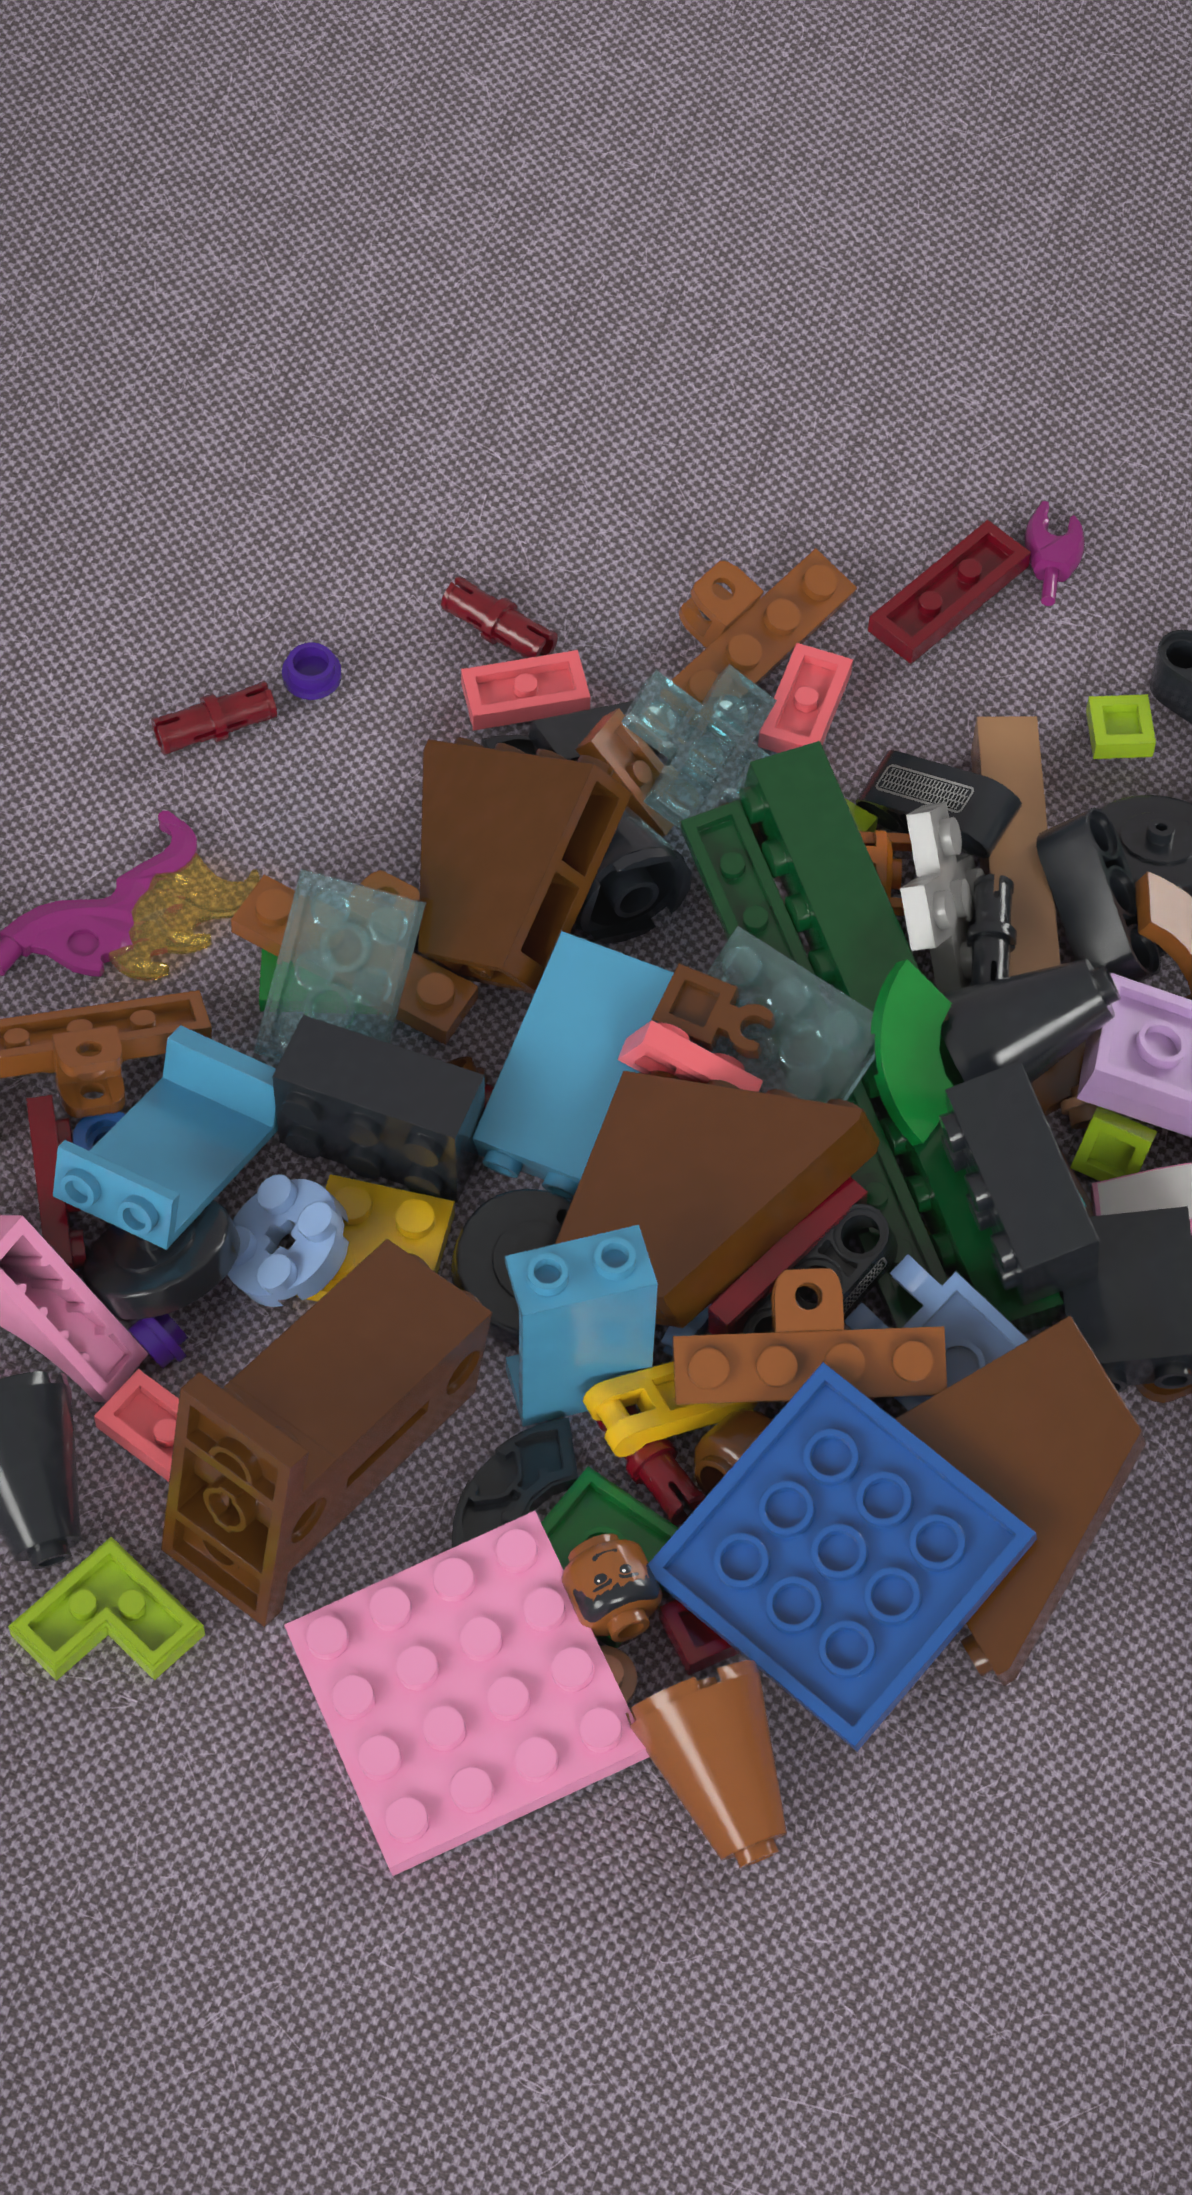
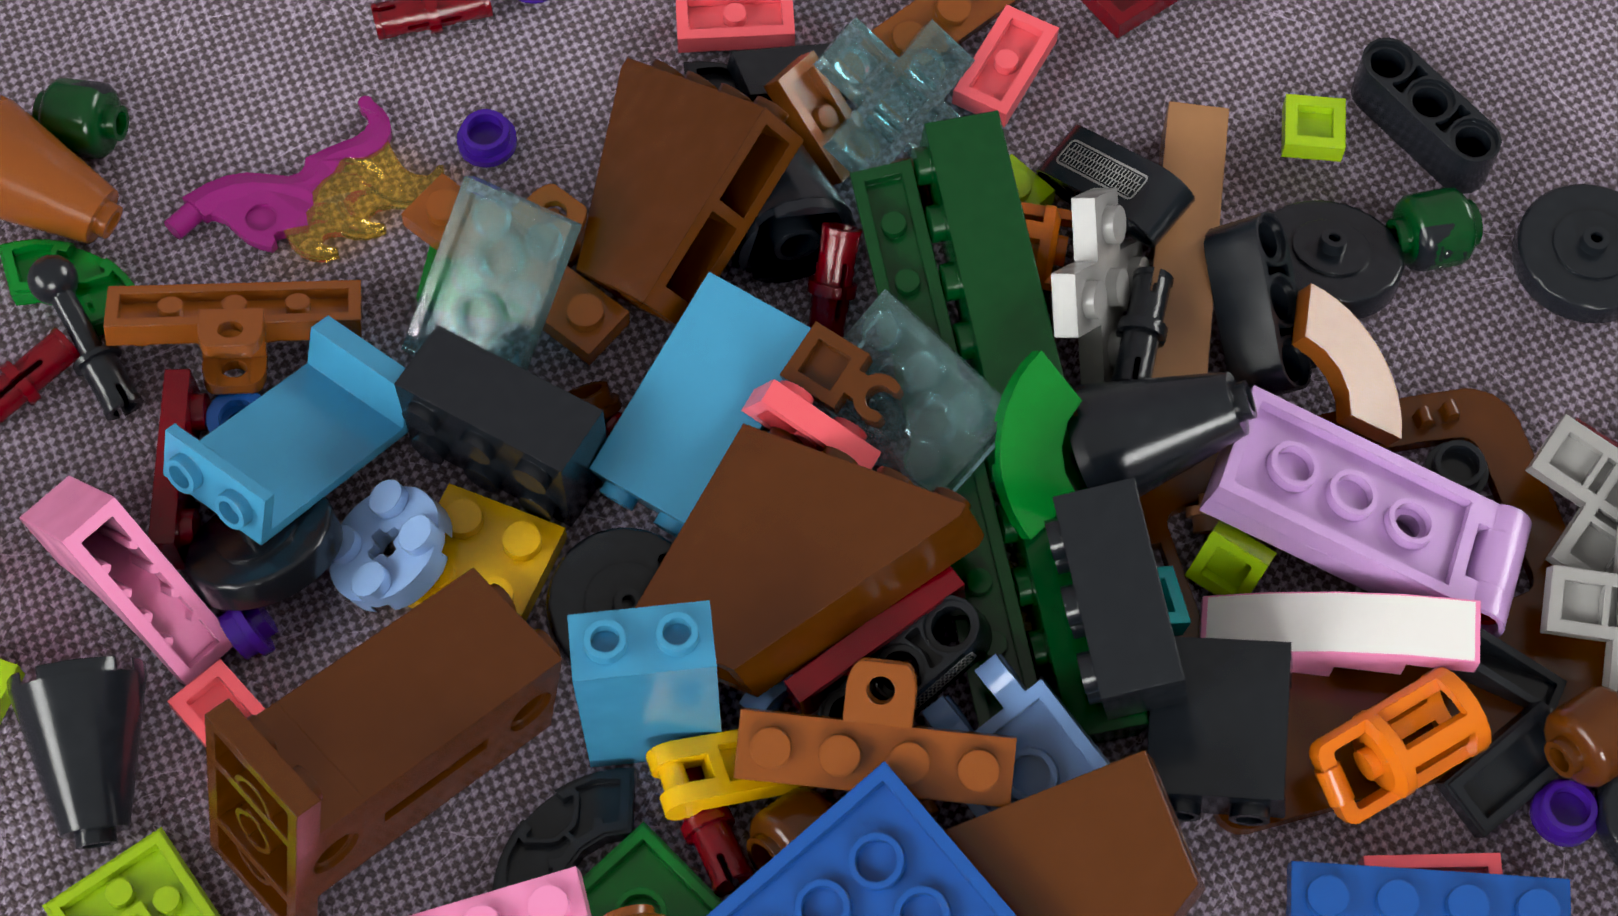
camera: 10 degrees right, 5 degrees up
(296, 837) = (486, 138): none -> dark purple plate
(679, 919) = (833, 282): none -> dark red pin

